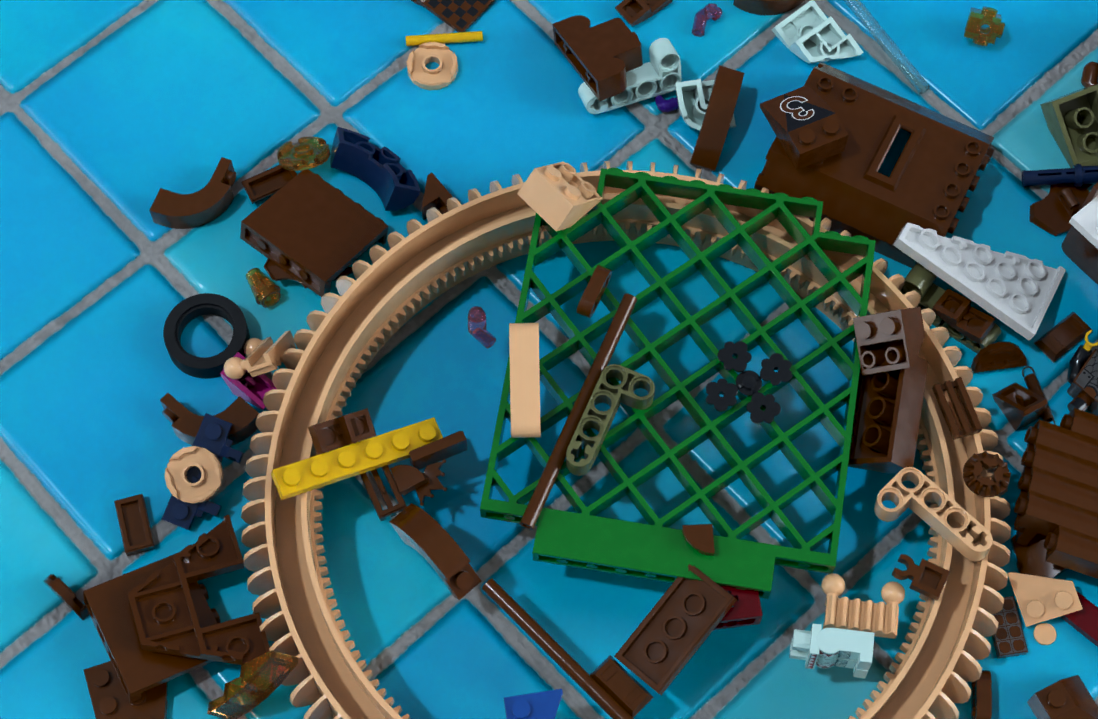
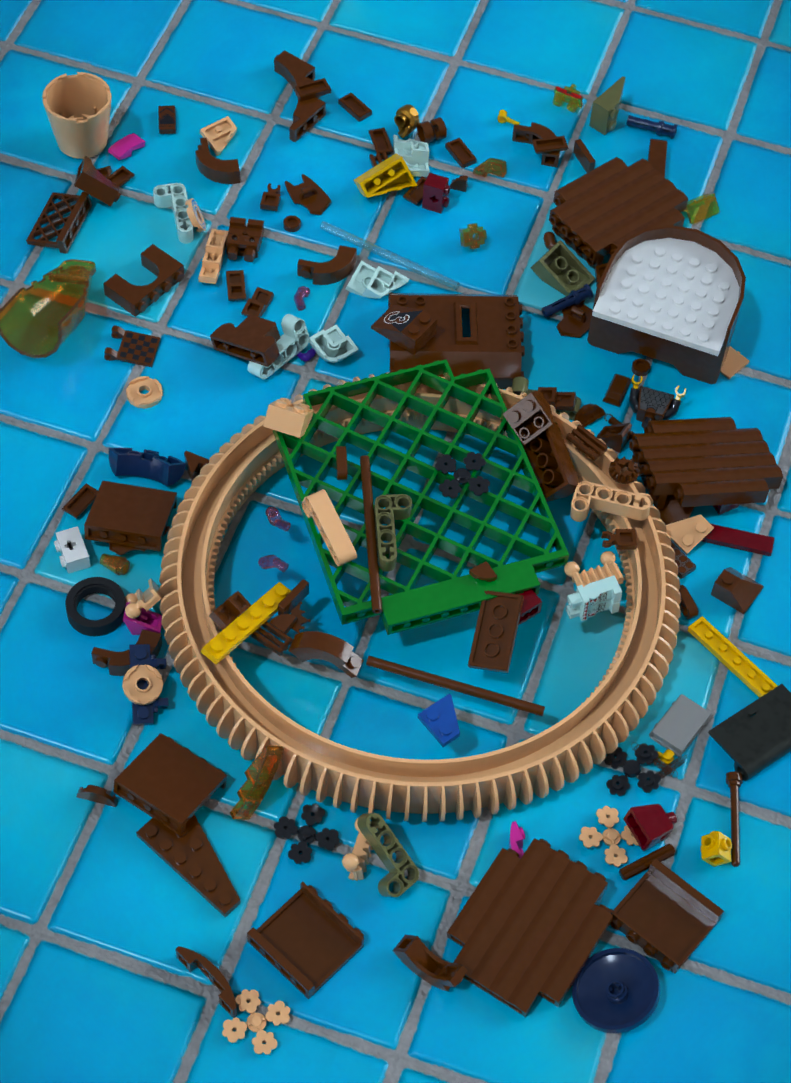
camera: 30 degrees left, 10 degrees down
(134, 525) = (115, 736): reddish brown tile -> none
(167, 614) = (180, 769): reddish brown wing -> none
(198, 208) = (41, 536): reddish brown arch -> none
(220, 245) = (72, 549): none -> white brick
(303, 155) = (94, 474): clear orange tile -> none
(444, 384) = (272, 561): none -> arm
(445, 38) = (148, 370): yellow bar -> none
(621, 686) = (481, 679): reddish brown tile -> none
(717, 118) = (345, 348): reddish brown slope -> none
(1003, 284) = (567, 370): white wing -> none
(1044, 634) = (699, 554): light nougat piece -> none

